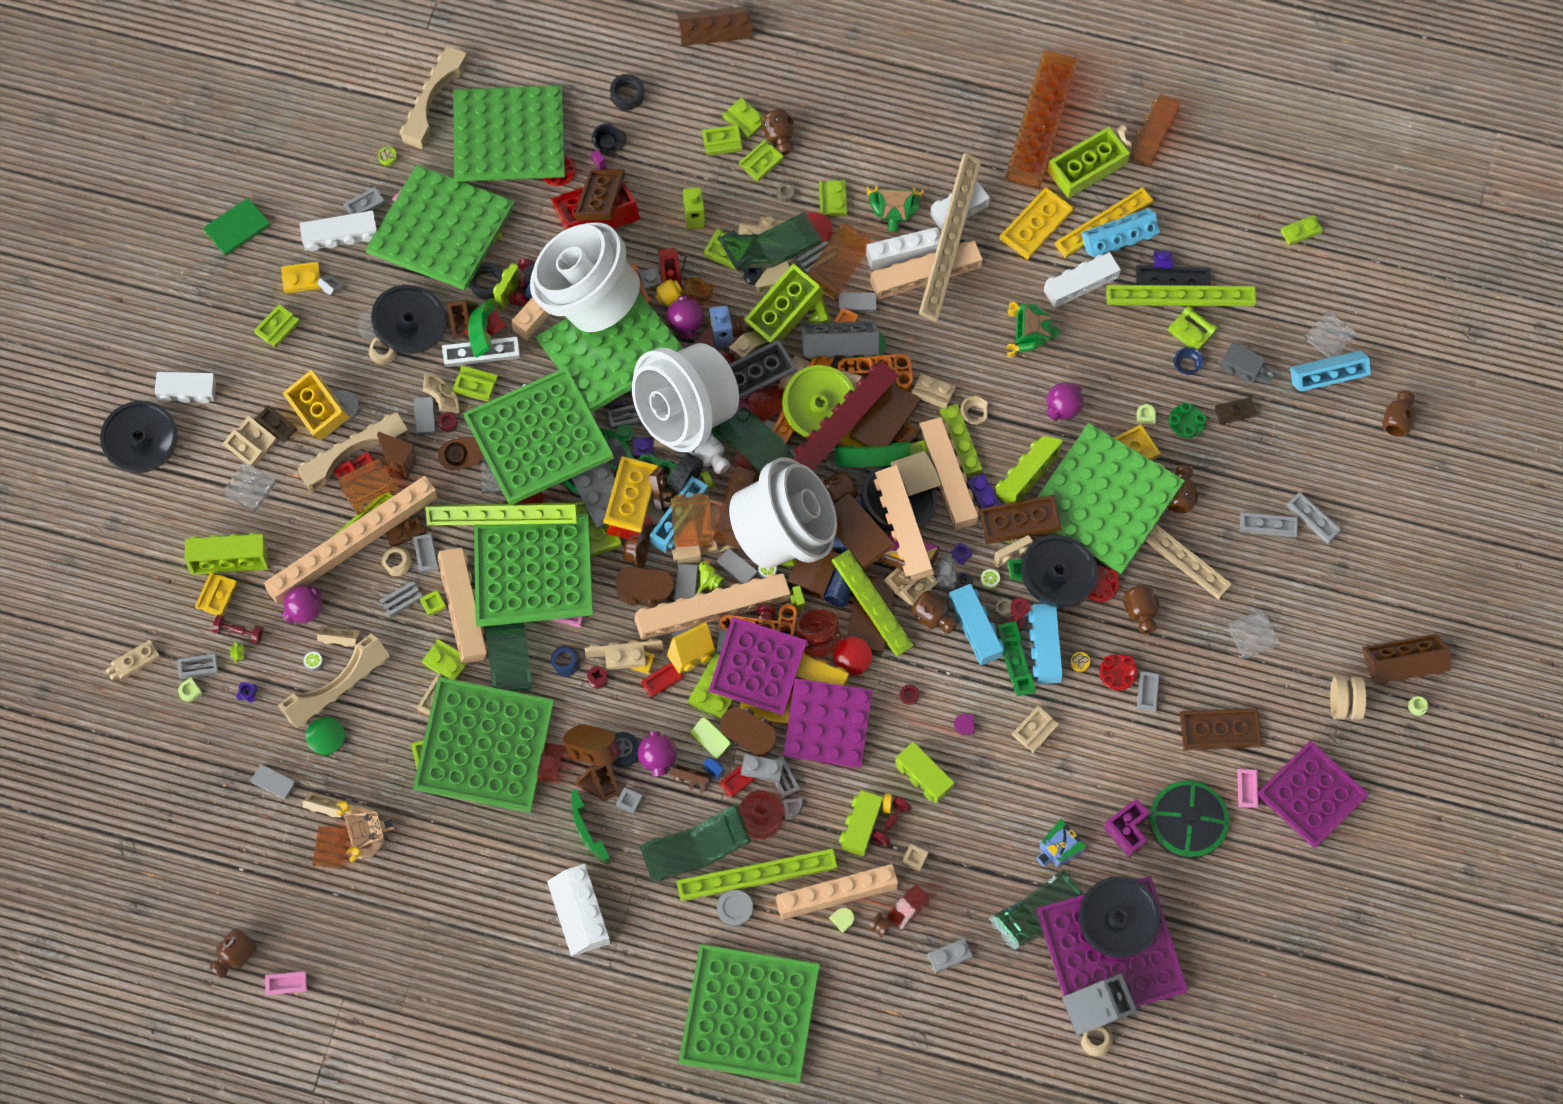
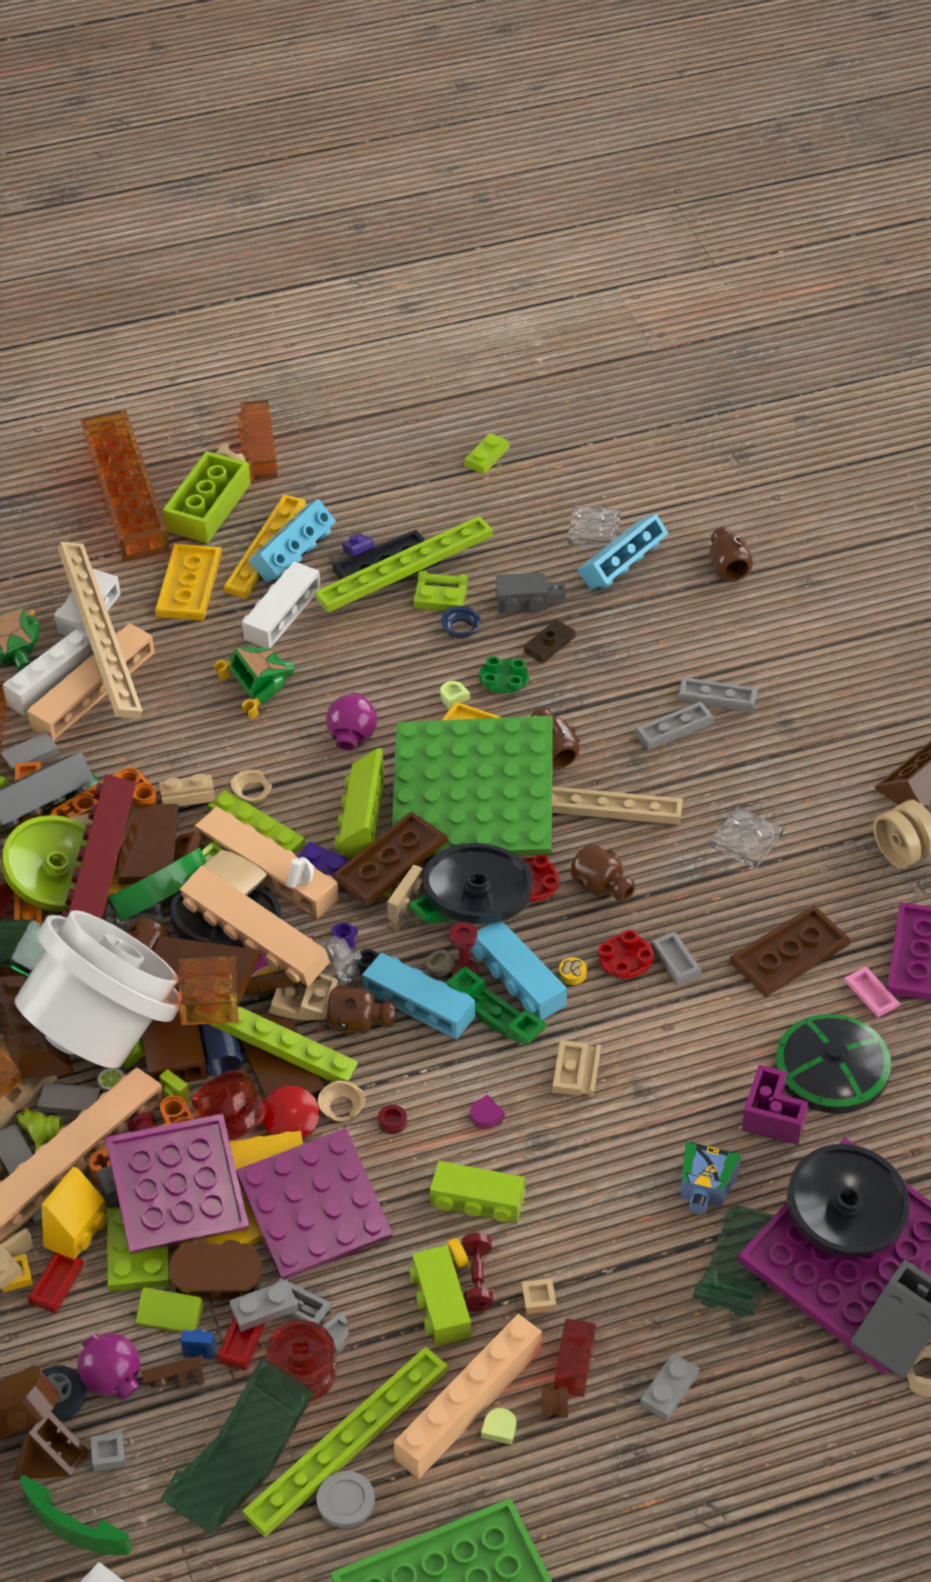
camera: 30 degrees left, 20 degrees down
(846, 555) = (208, 990): none -> clear orange brick
(887, 656) = (341, 1090): none -> tan piece
(958, 498) = (300, 872): none -> white plate
(990, 579) = (398, 944): tile -> none

